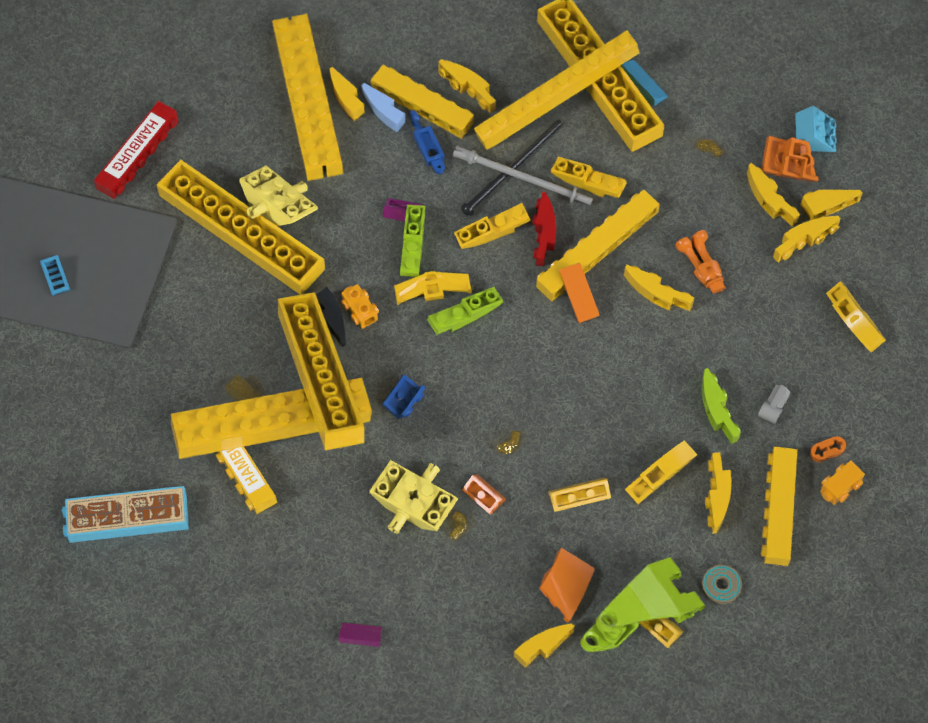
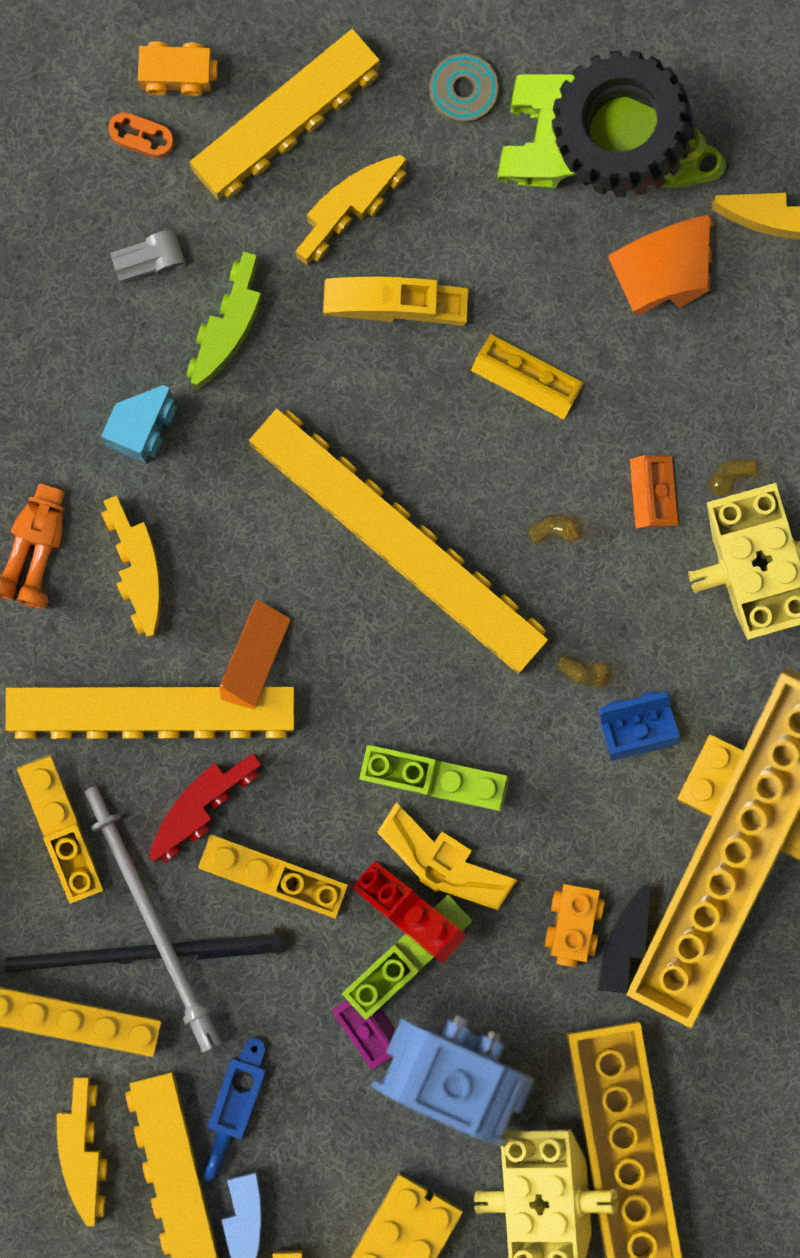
camera: 140 degrees left, 20 degrees up
(352, 200) = (455, 1078): none -> medium blue piece
(427, 253) = (408, 912): none -> red slope
(441, 399) = (583, 676): none -> clear yellow arm
(567, 384) = (398, 541): none -> yellow brick
(645, 572) = (610, 80): none -> black tyre
(709, 334) = (137, 423): none -> medium azure slope

